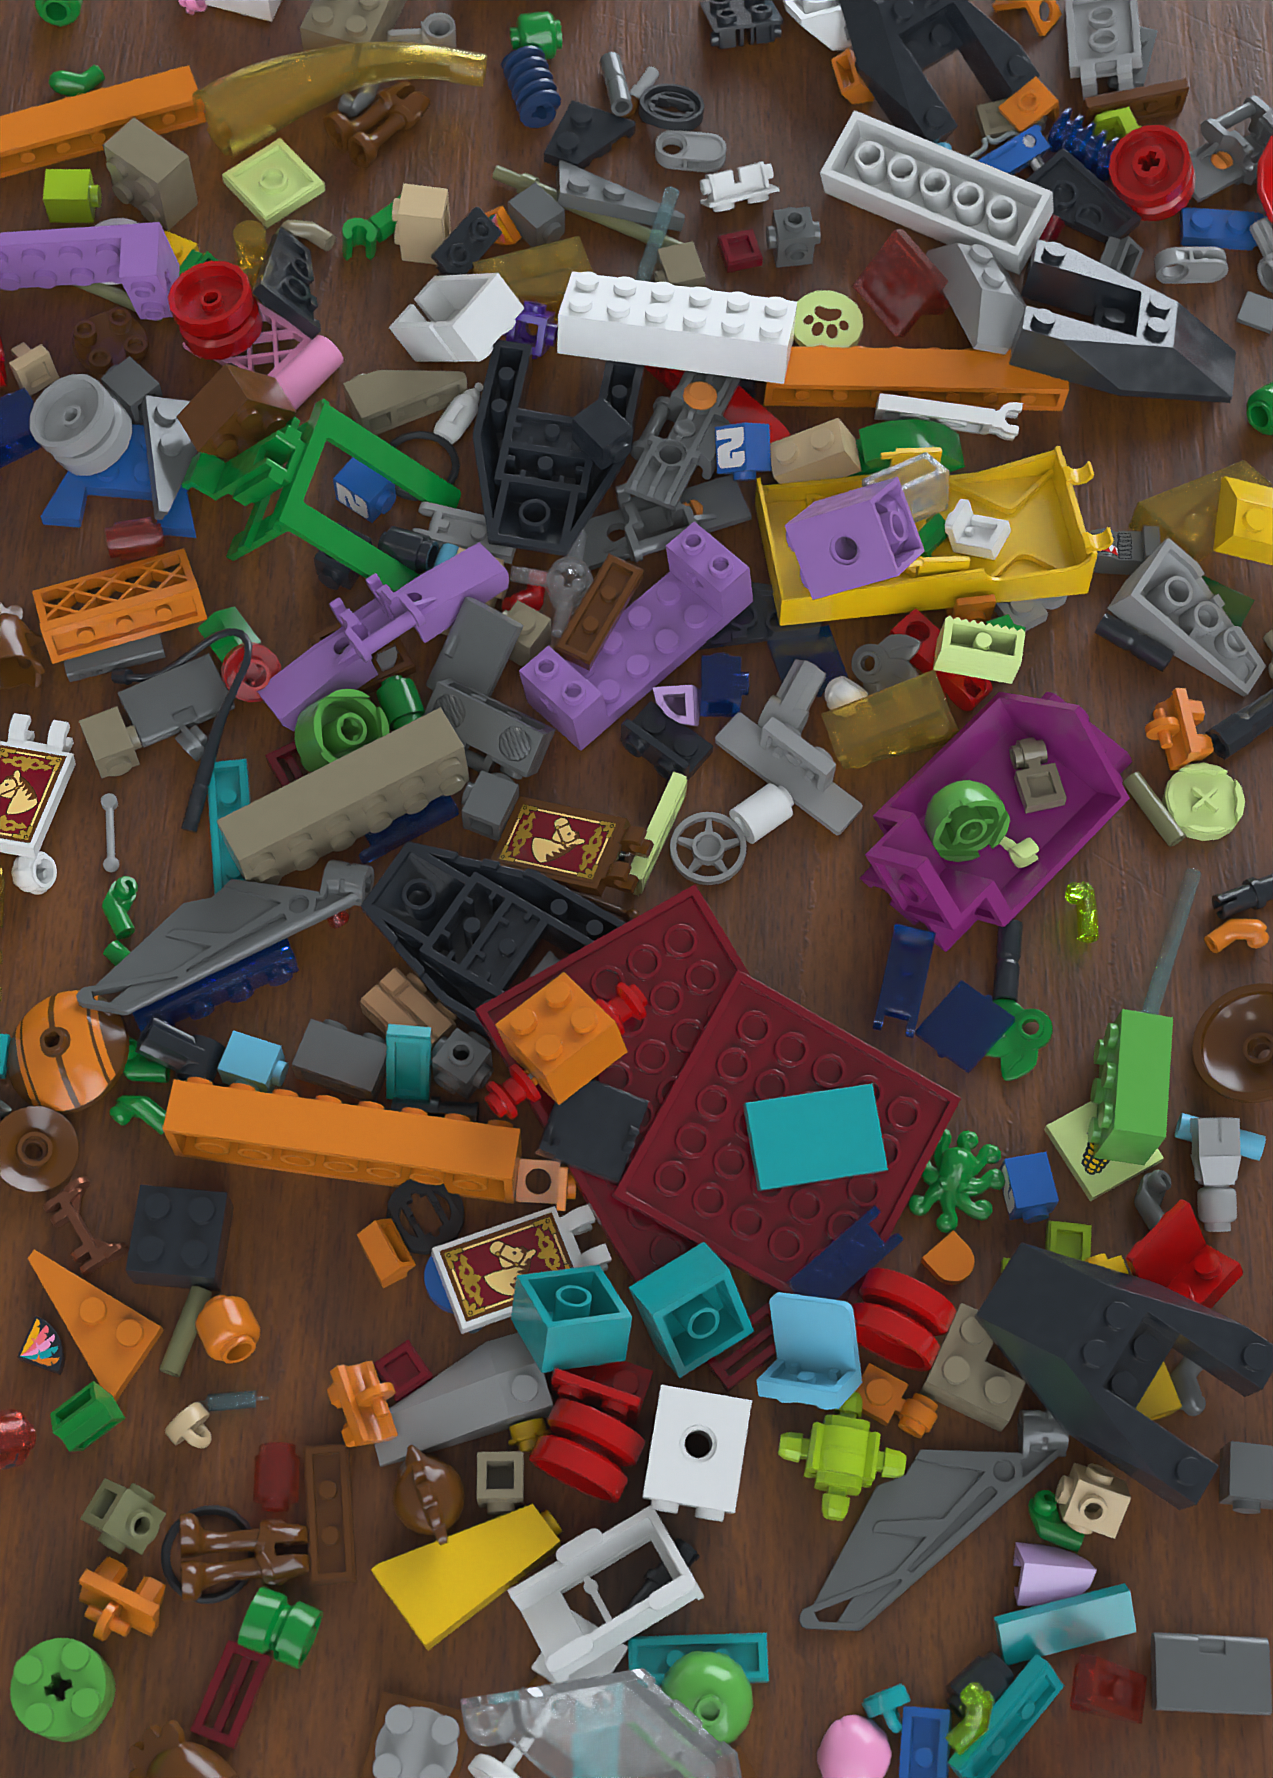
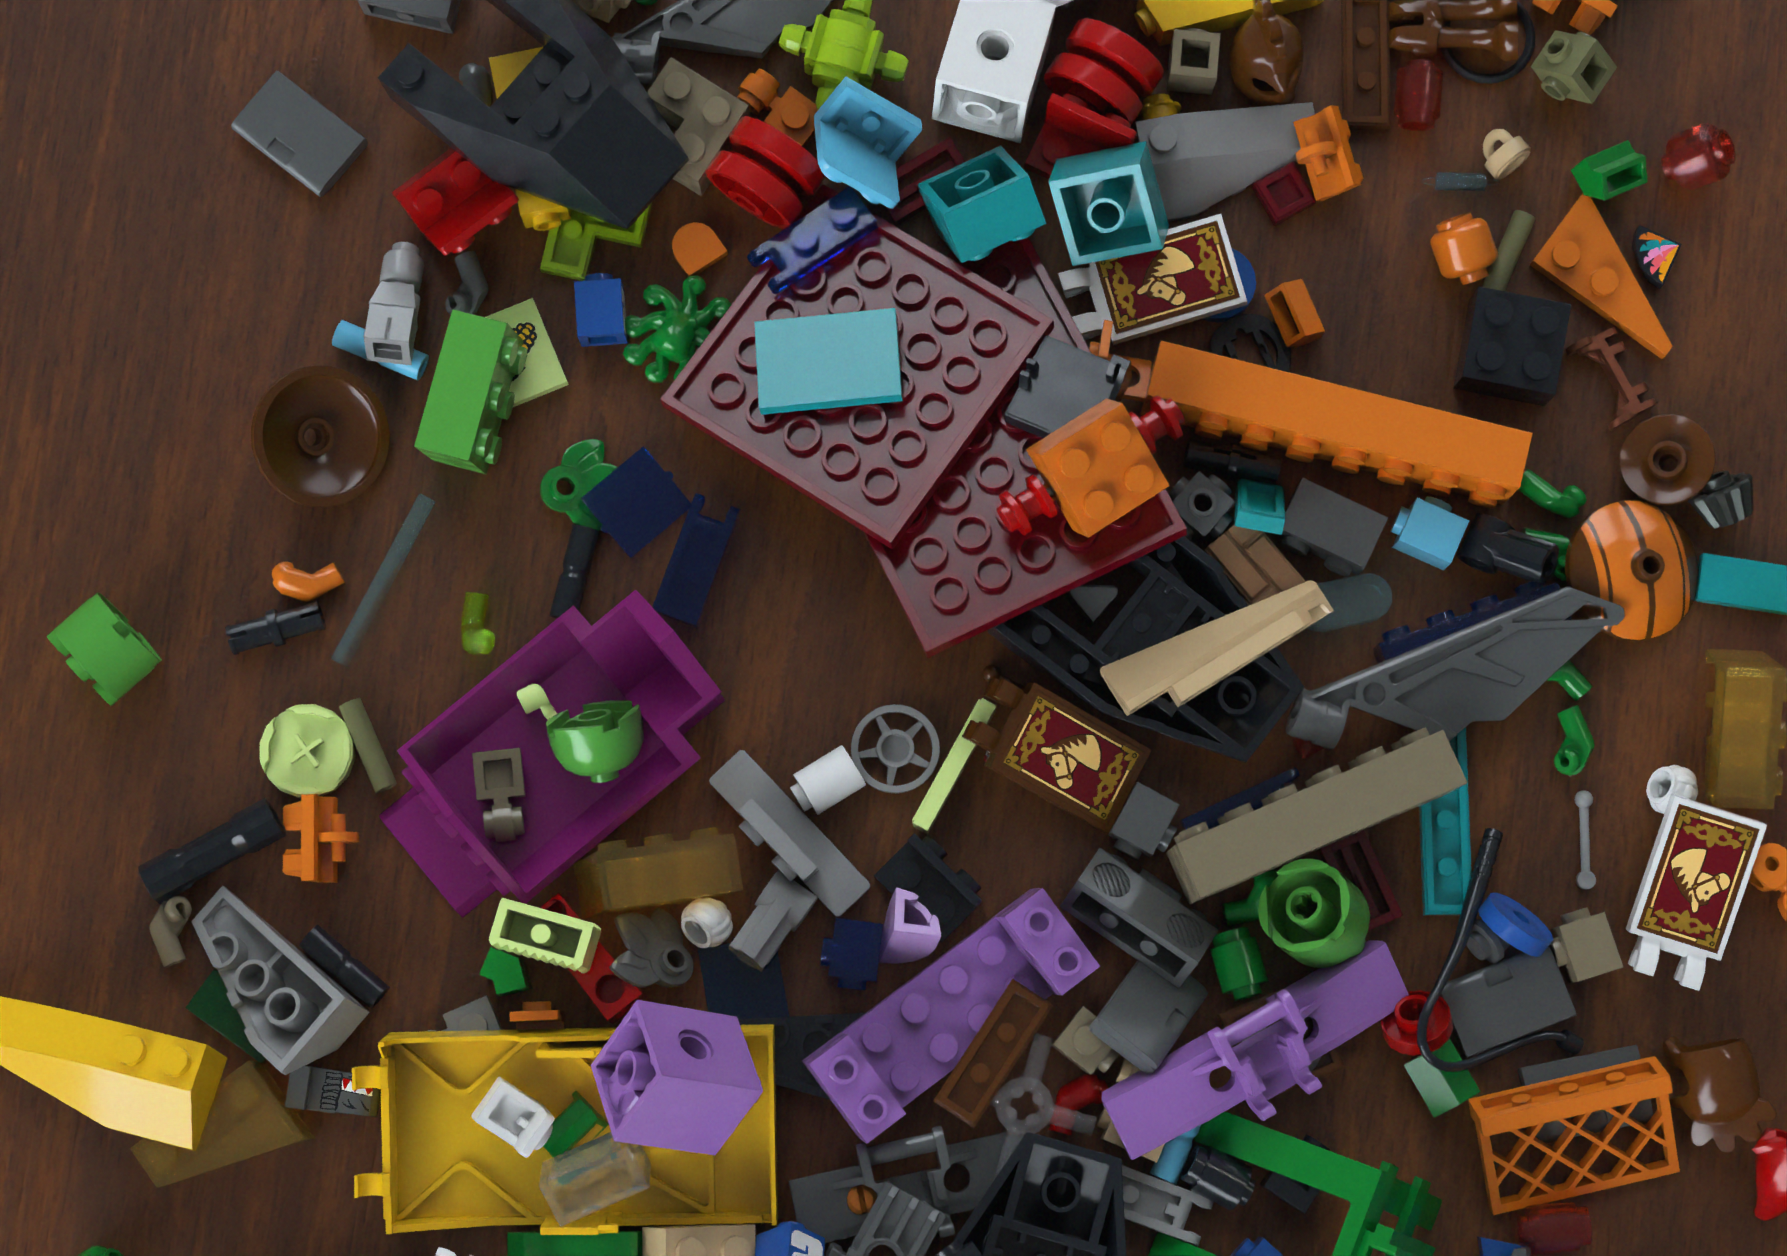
camera: 170 degrees left, 15 degrees up
(170, 748) = (1515, 924): none -> blue piece
(331, 1000) = (1354, 601): none -> clear light blue tile
(440, 921) = (1214, 650): none -> tan wedge

